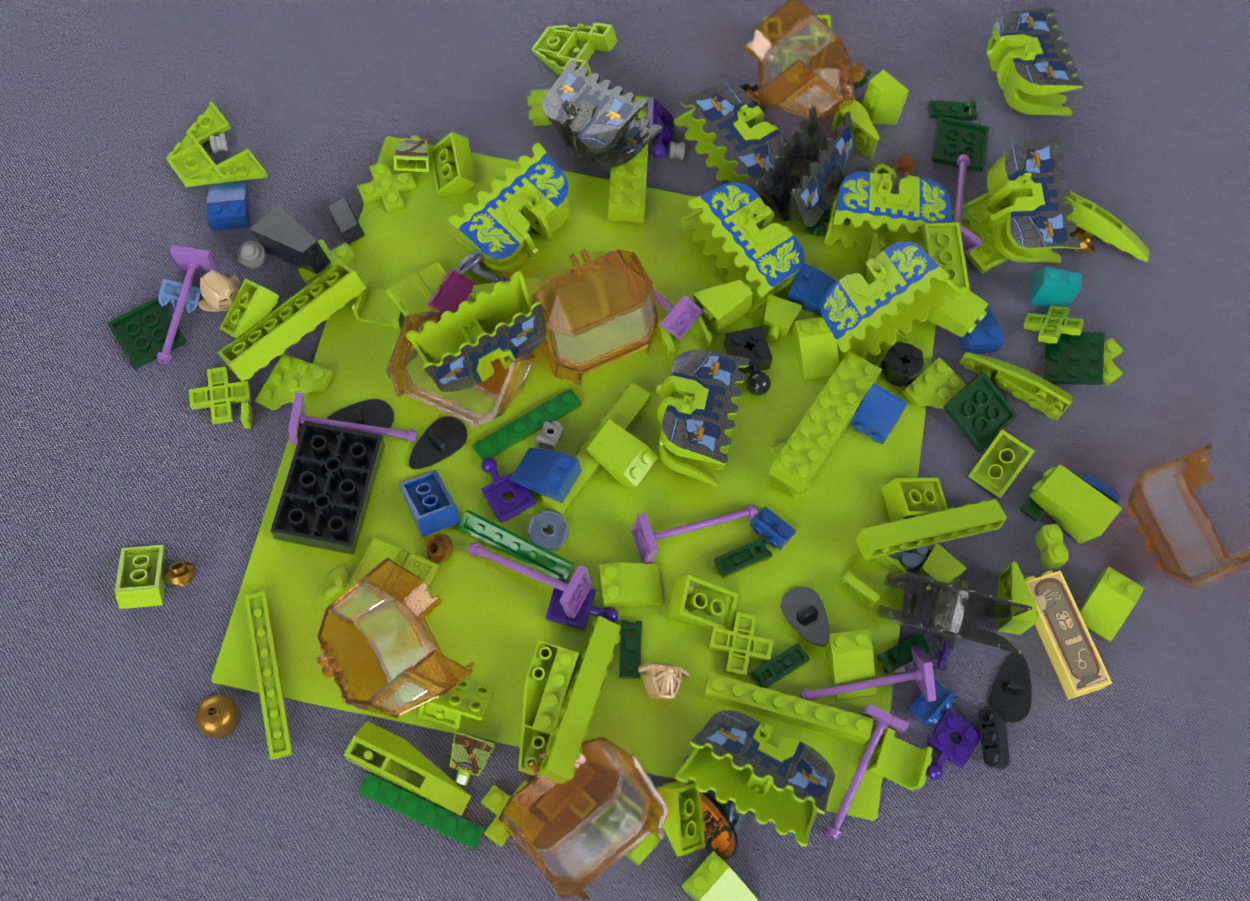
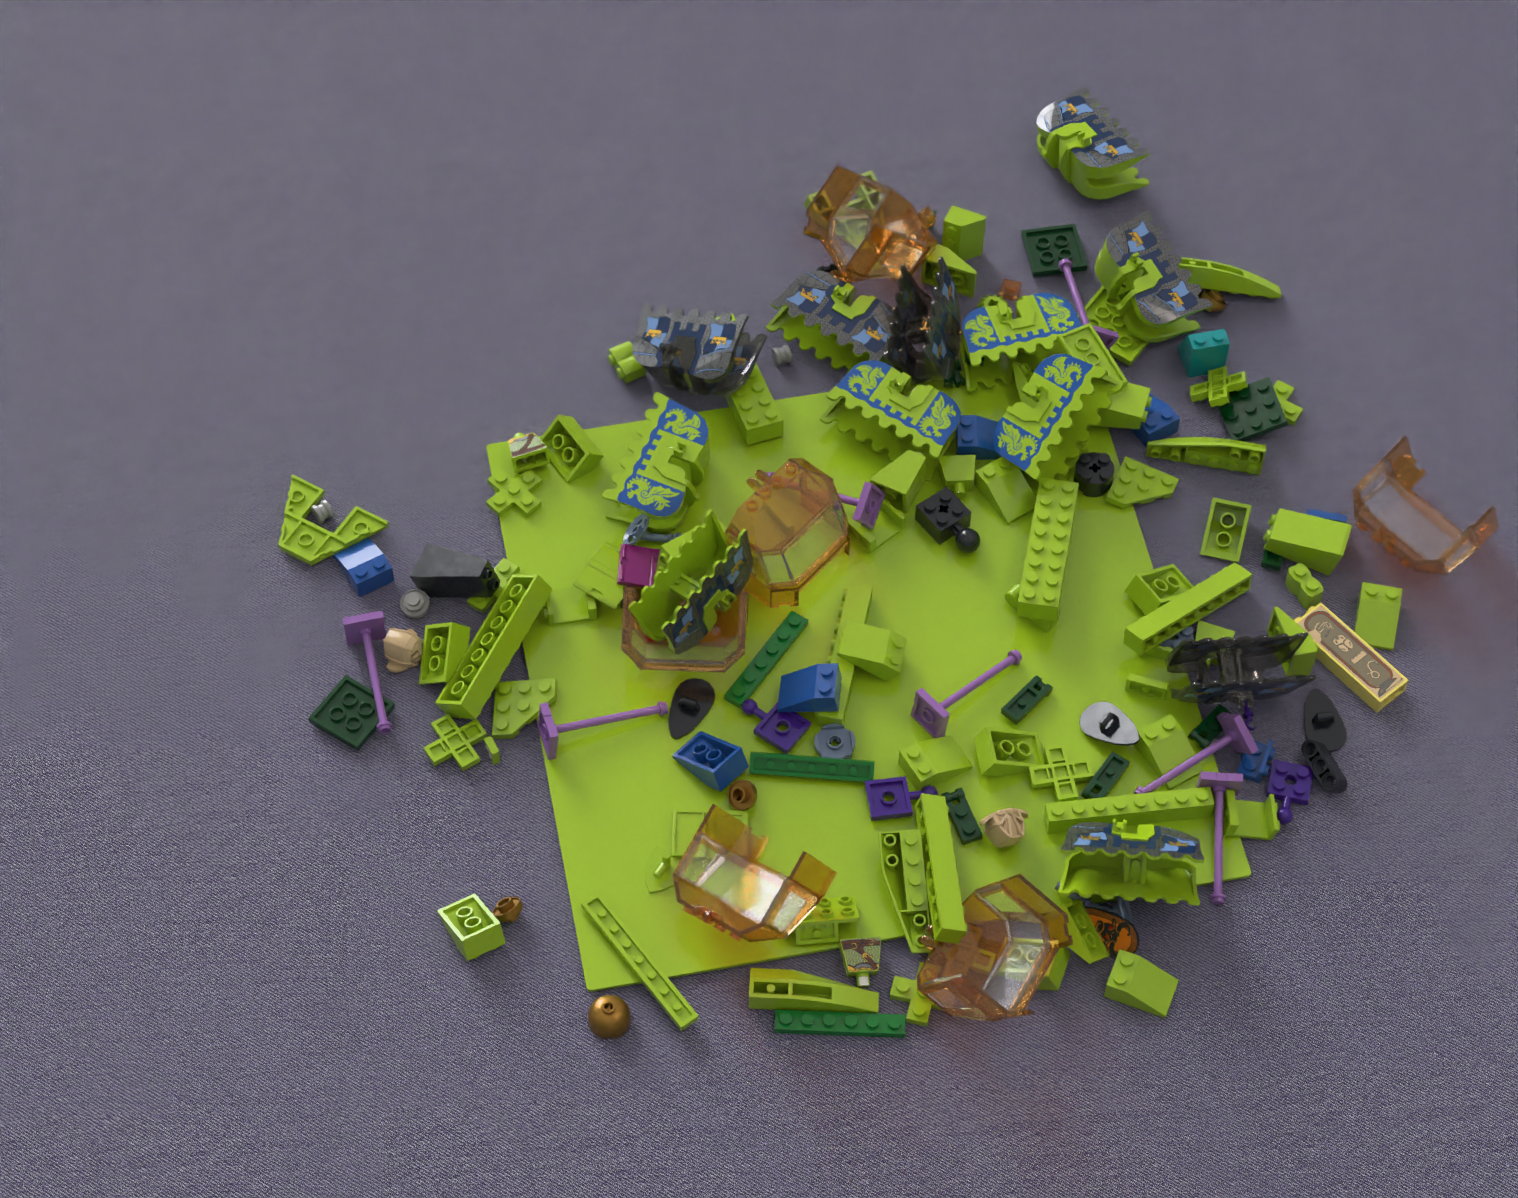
camera: 15 degrees left, 10 degrees down
(171, 290) = (357, 665): medium blue plate -> none
(328, 487) = (610, 780): black brick -> none
(346, 220) = (492, 537): black beam -> none
(368, 412) = (607, 703): black shield -> none
(549, 441) = (793, 658): light grey brick -> none
(564, 44) = (623, 294): lime wedge -> none
(574, 592) = (890, 781): medium lavender tile -> none
(659, 115) = (755, 328): dark purple plate -> none
(699, 412) = (925, 584): animal -> none
(772, 528) = (1041, 664): blue bracket -> none
(878, 414) = (1093, 524): blue slope -> none
(952, 110) = (1031, 220): dark green plate -> none
(980, 411) = (1185, 490): dark green plate -> none

